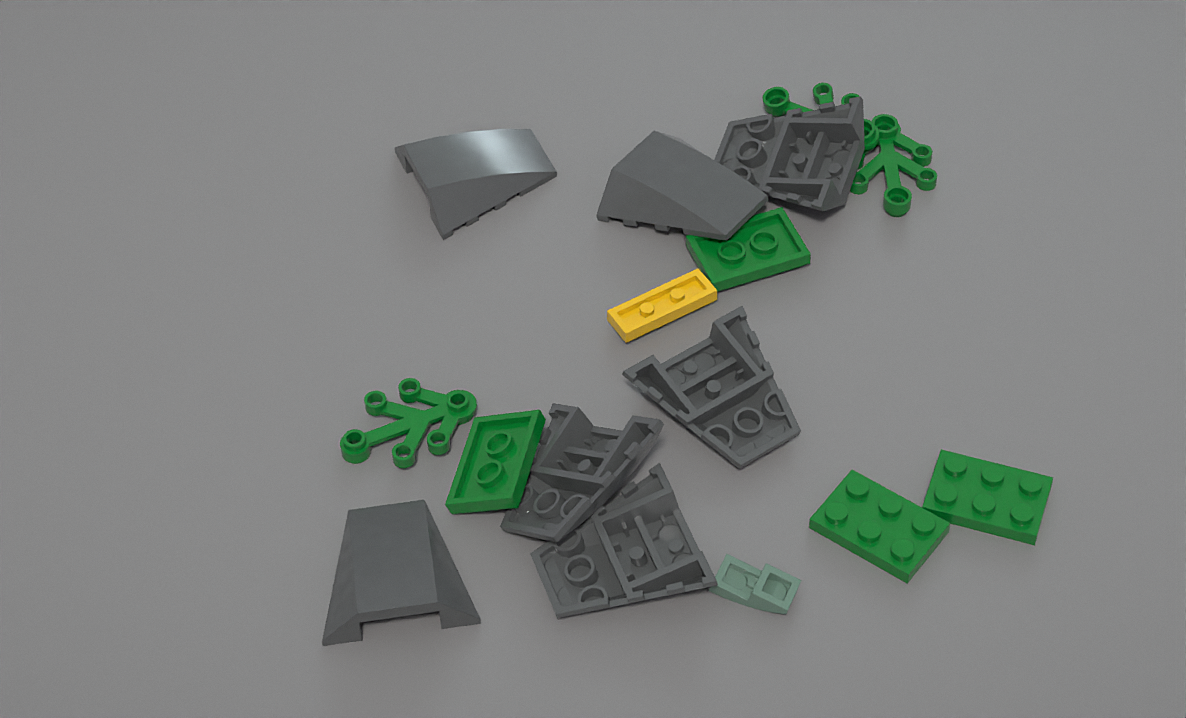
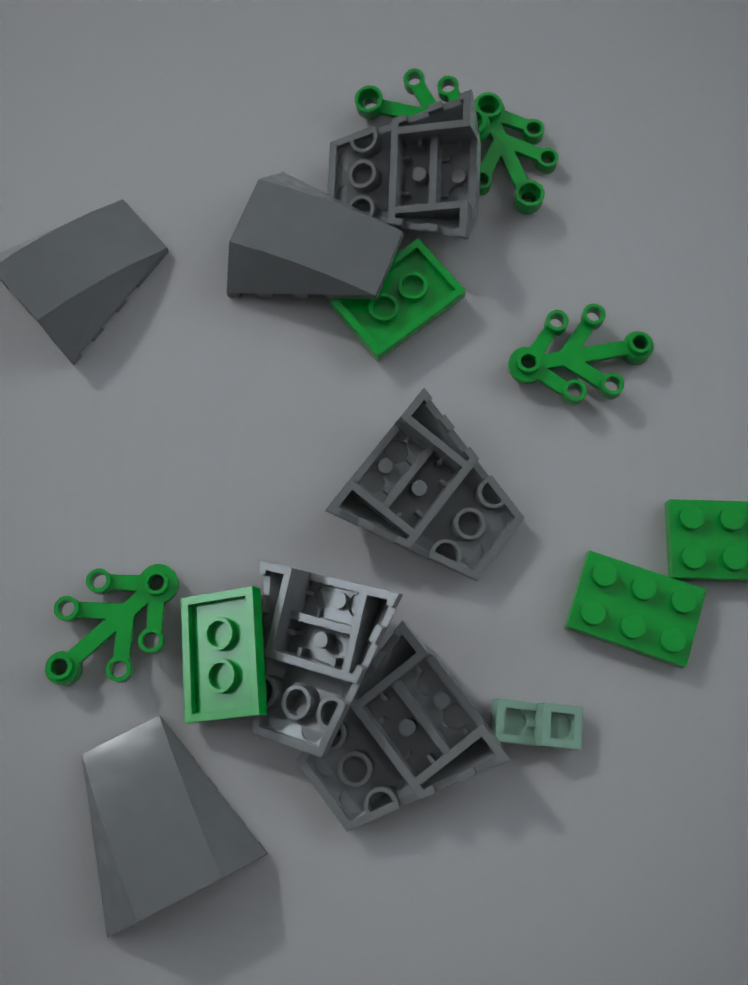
camera: 20 degrees left, 25 degrees up
(661, 305) = (332, 395): yellow plate -> none
(857, 324) = (575, 358): none -> green plant

